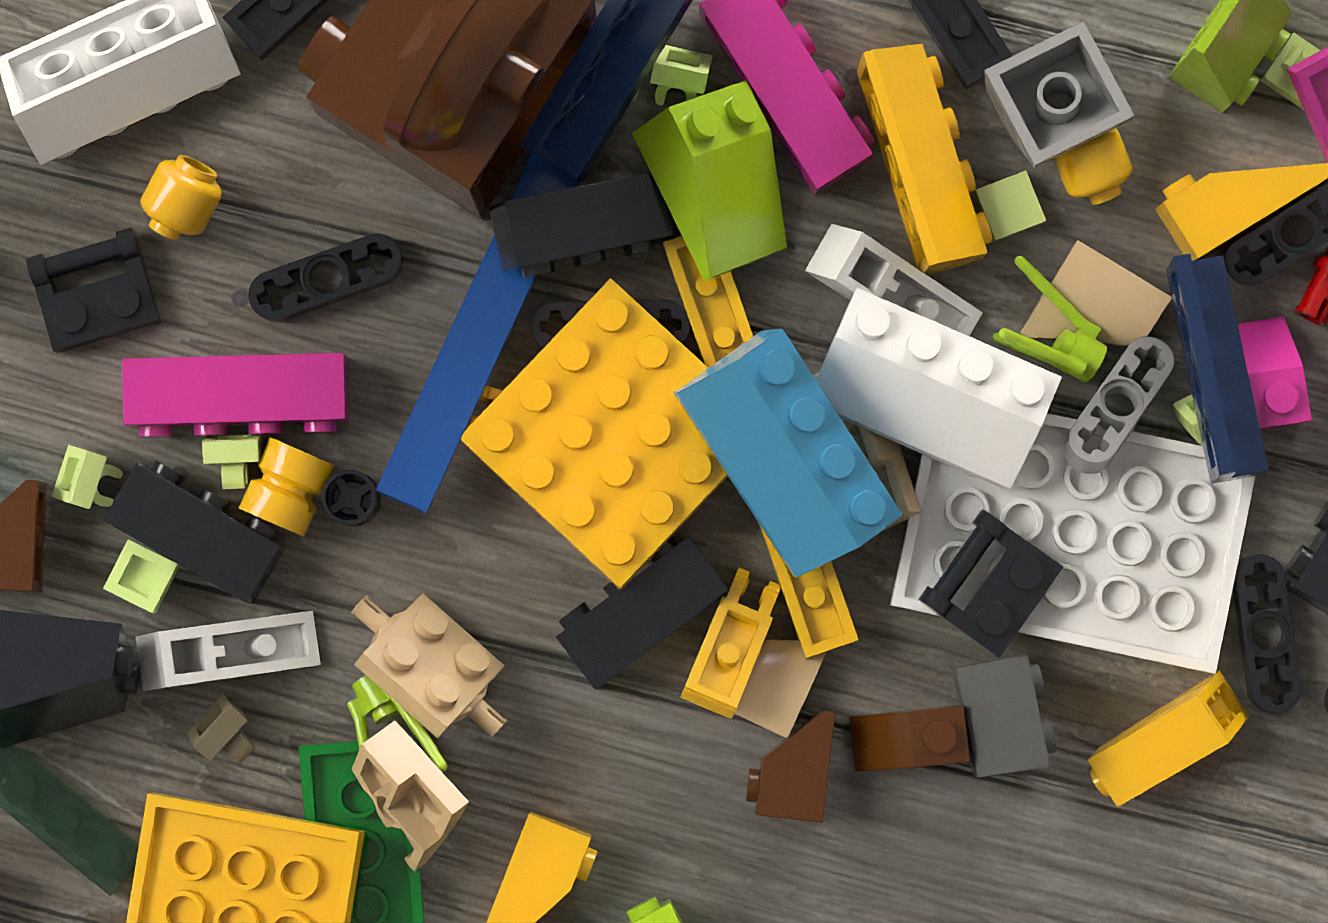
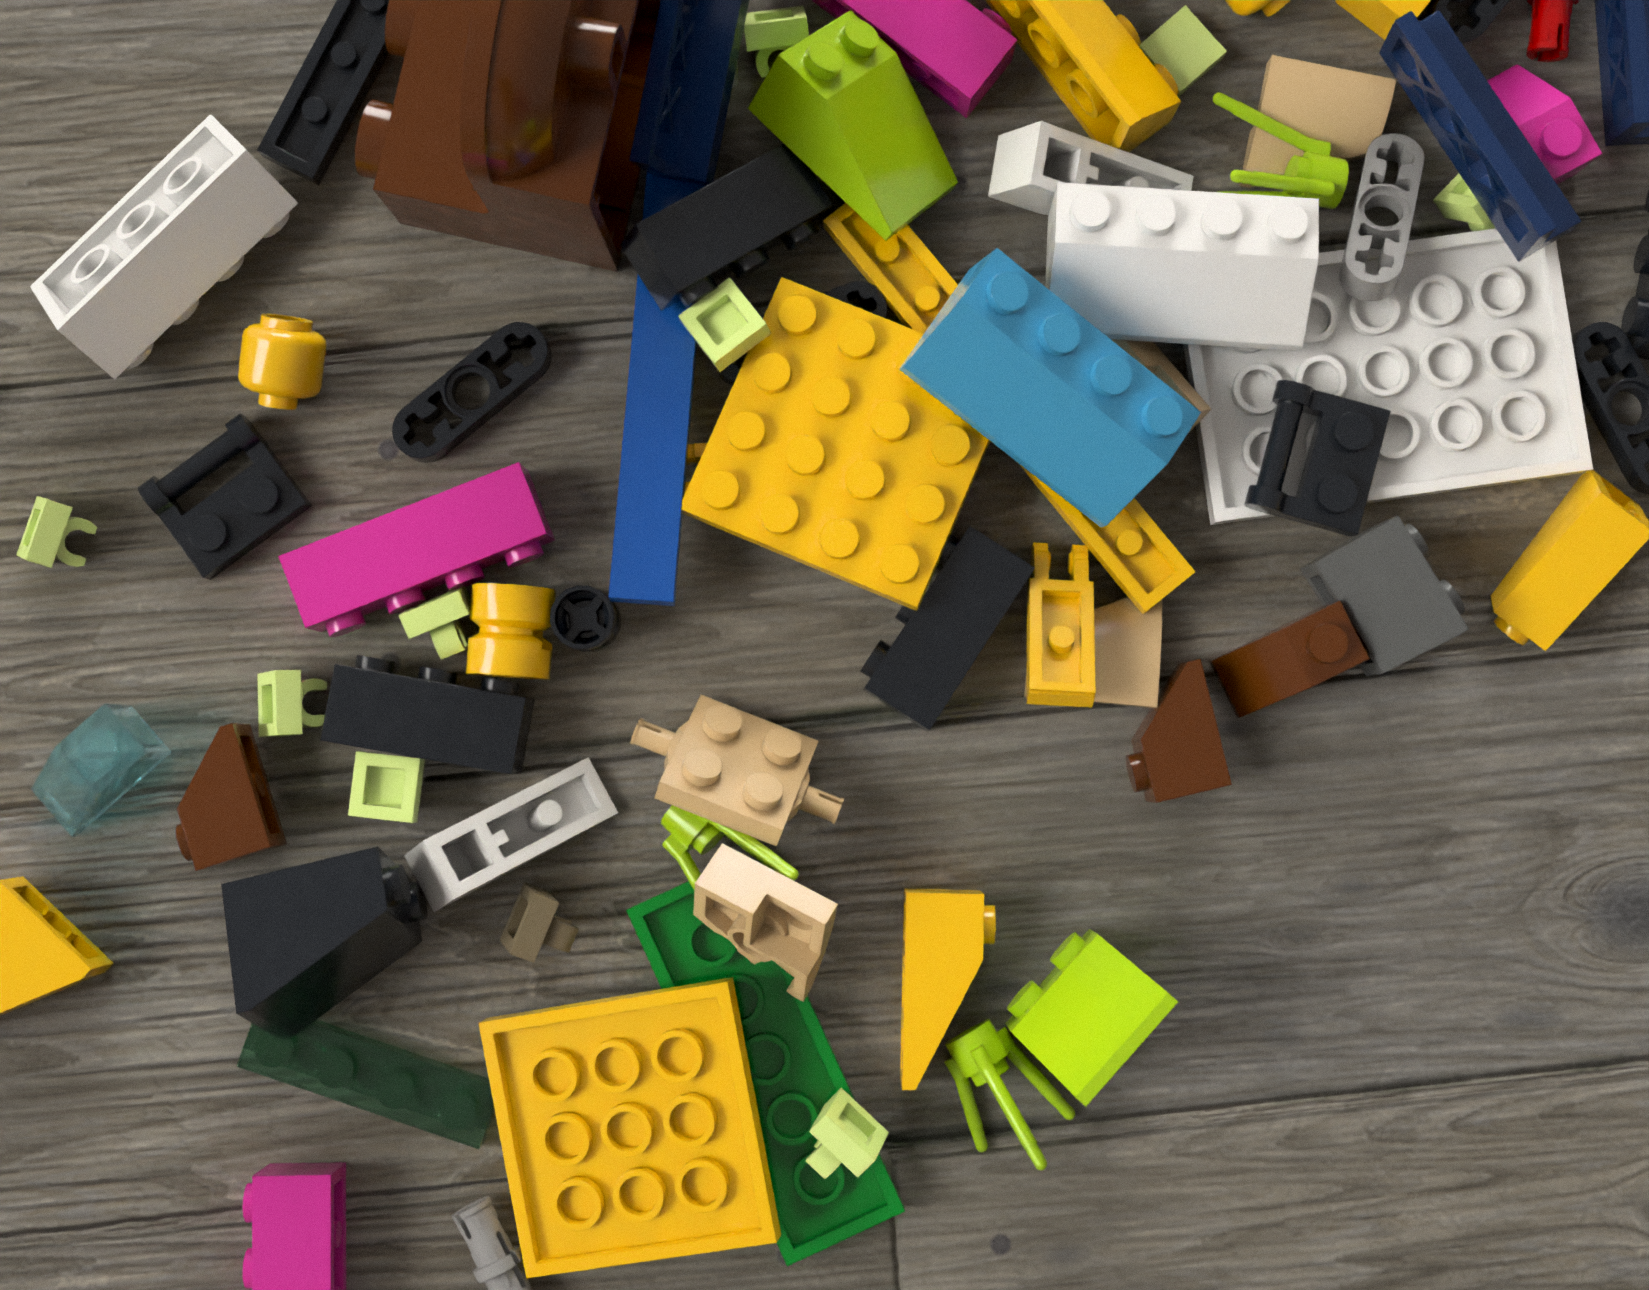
camera: 15 degrees left, 0 degrees up
(549, 303) = (724, 324): none -> yellowish green tile

